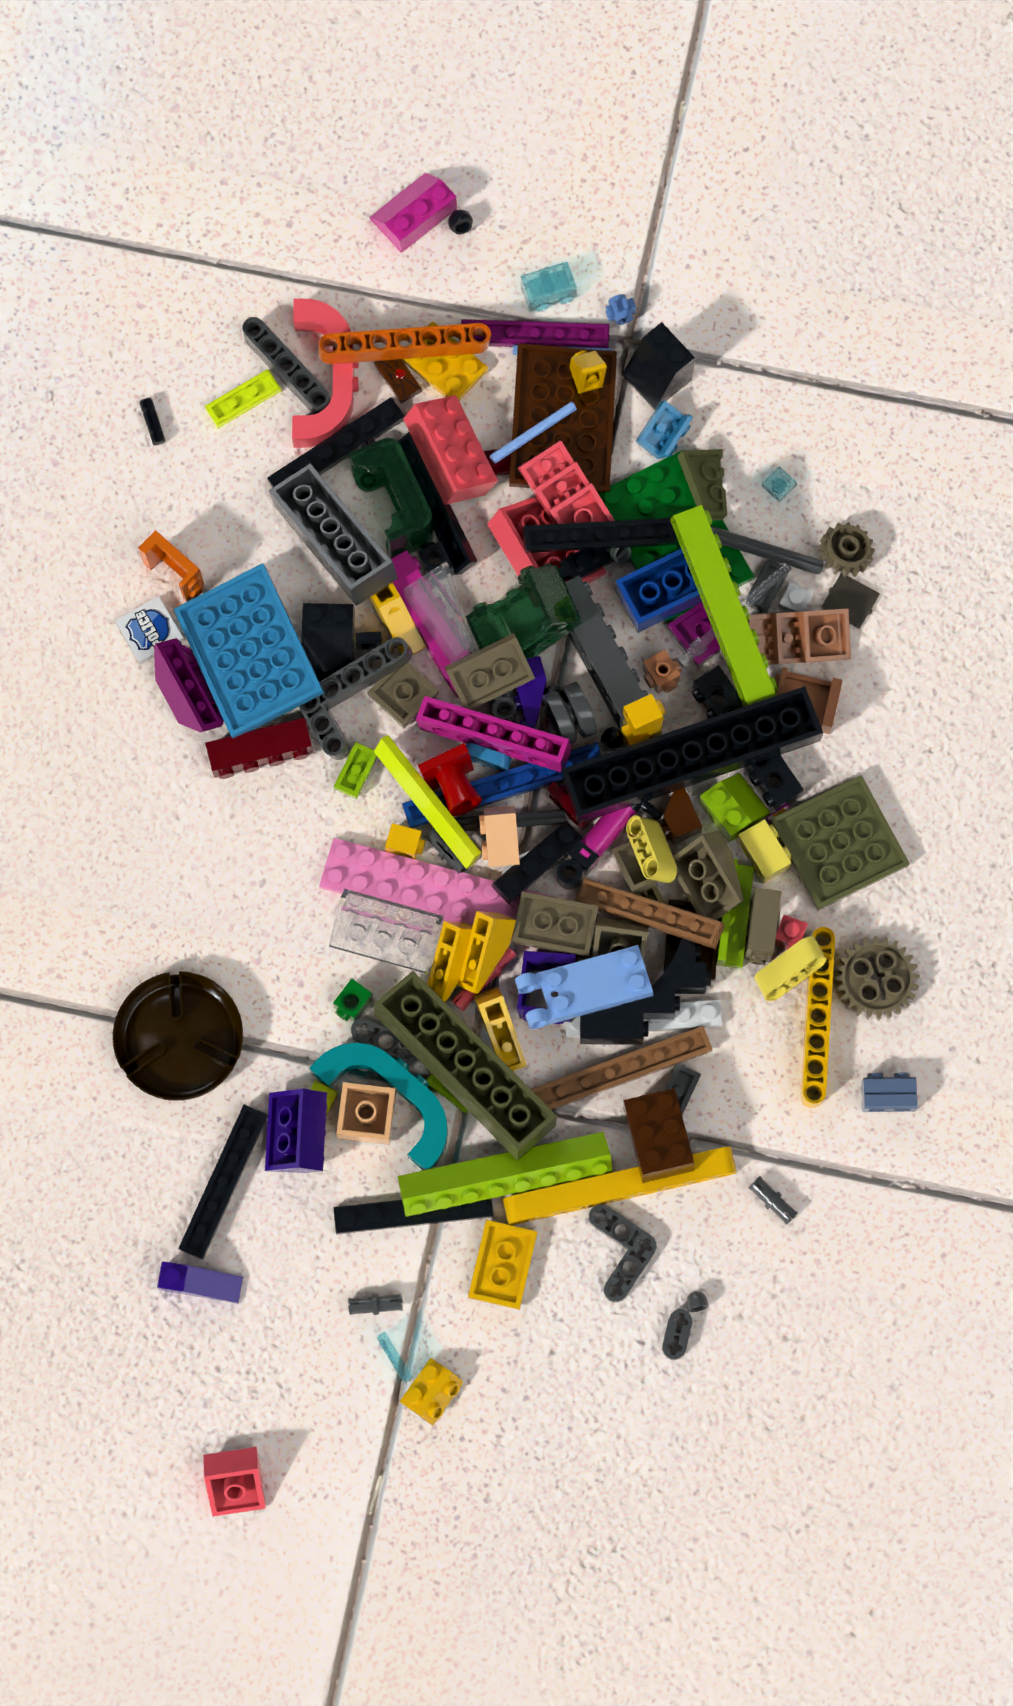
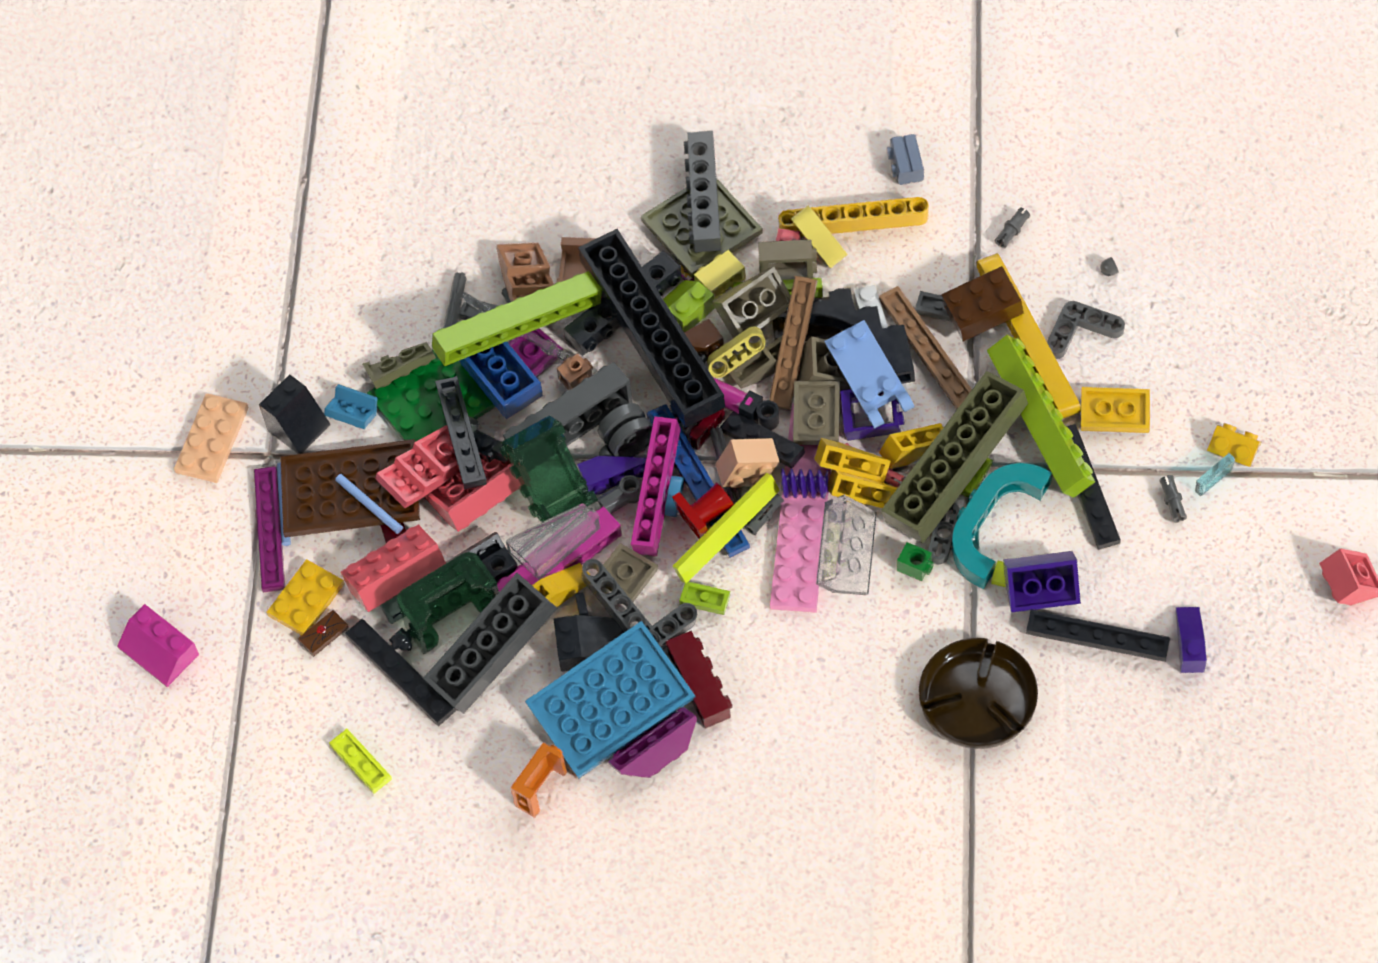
camera: 95 degrees left, 15 degrees down
(146, 627) = (600, 797): tile -> none
(152, 421) = (393, 834): black axle -> none
(282, 356) = (327, 714): dark grey beam -> none
(314, 429) = (326, 676): coral arch -> none
(366, 1113) = (1012, 529): light nougat brick -> none
(394, 350) = (300, 627): orange beam -> none
(405, 841) = (763, 547): yellow brick -> none
(460, 221) = (165, 605): black plate -> none
(462, 893) = (804, 484): none -> dark purple piece
(489, 672) = (602, 491): dark tan plate -> none
(549, 287) = (223, 521): clear light blue brick -> none
(587, 371) = (305, 465): yellow slope -> none
(612, 738) = (641, 398): black hinge -> none
(620, 309) = (240, 459): medium blue gear -> none
(643, 720) = (628, 355): yellow arch -> none
(659, 285) = (211, 438): none -> light nougat plate
(683, 1335) = (1139, 277): dark grey beam -> none
(779, 484) = (389, 315): clear light blue plate -> none
(796, 598) = (491, 290): white plate -> none
(810, 847) = (703, 191): none -> dark grey brick
(840, 559) = (442, 255): dark tan gear -> none
(851, 595) = (483, 252): clear smoke piece -> none
(899, 972) = (811, 180): dark tan gear -> none

